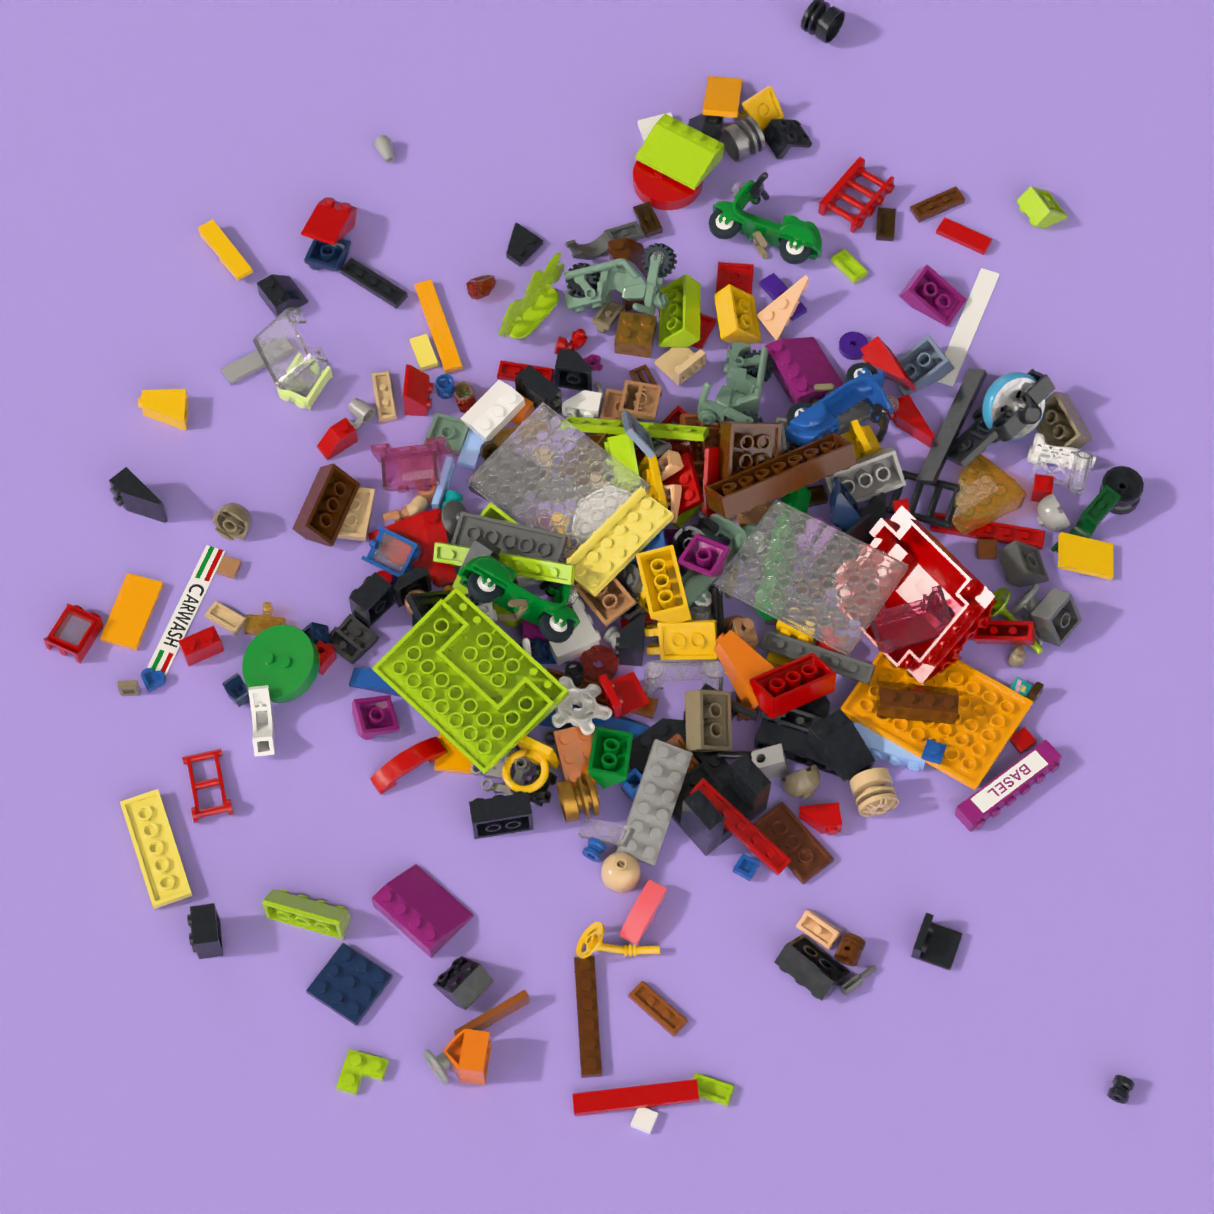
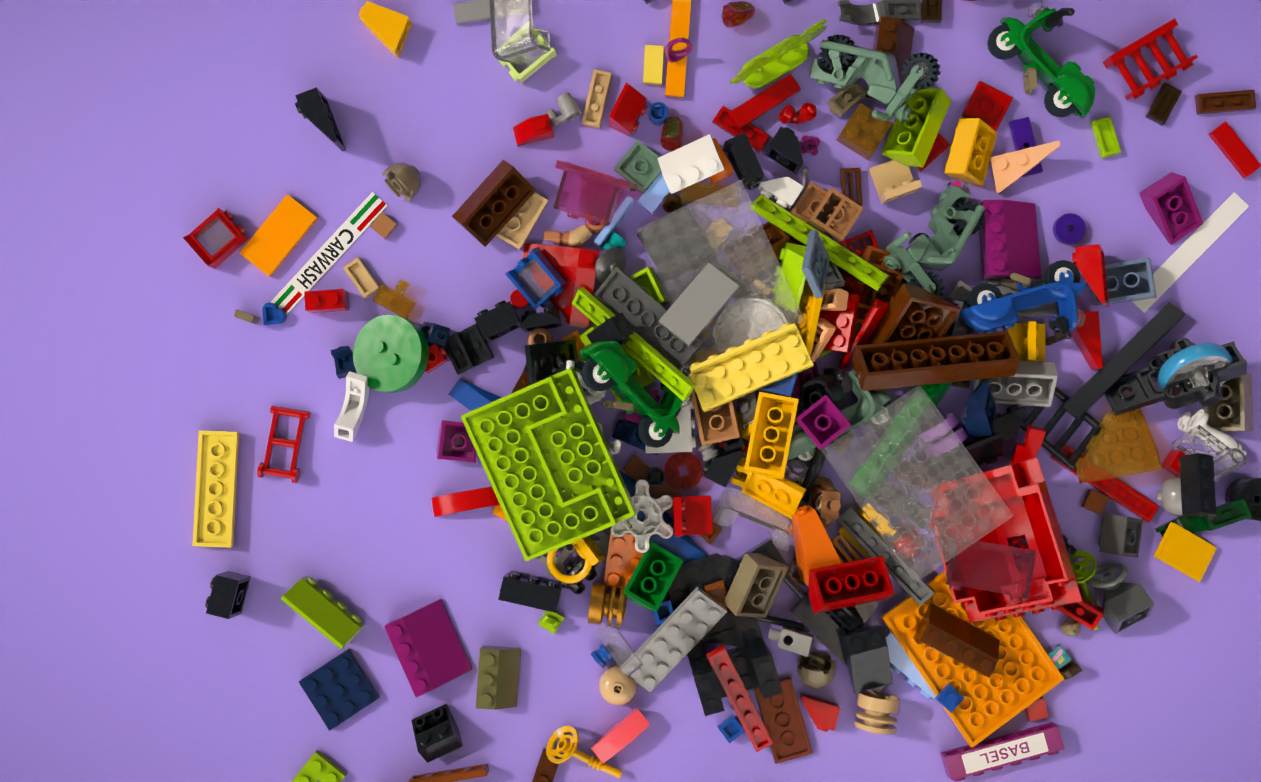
camera: 25 degrees right, 25 degrees up
(439, 337) = (674, 56): none -> magenta piece
(501, 908) = (498, 677): none -> olive slope
(531, 841) = (551, 621): none -> lime tile
(536, 343) = (764, 102): none -> red tile
(549, 508) = (698, 304): none -> light grey tile
(1061, 489) = (1198, 486): none -> black slope

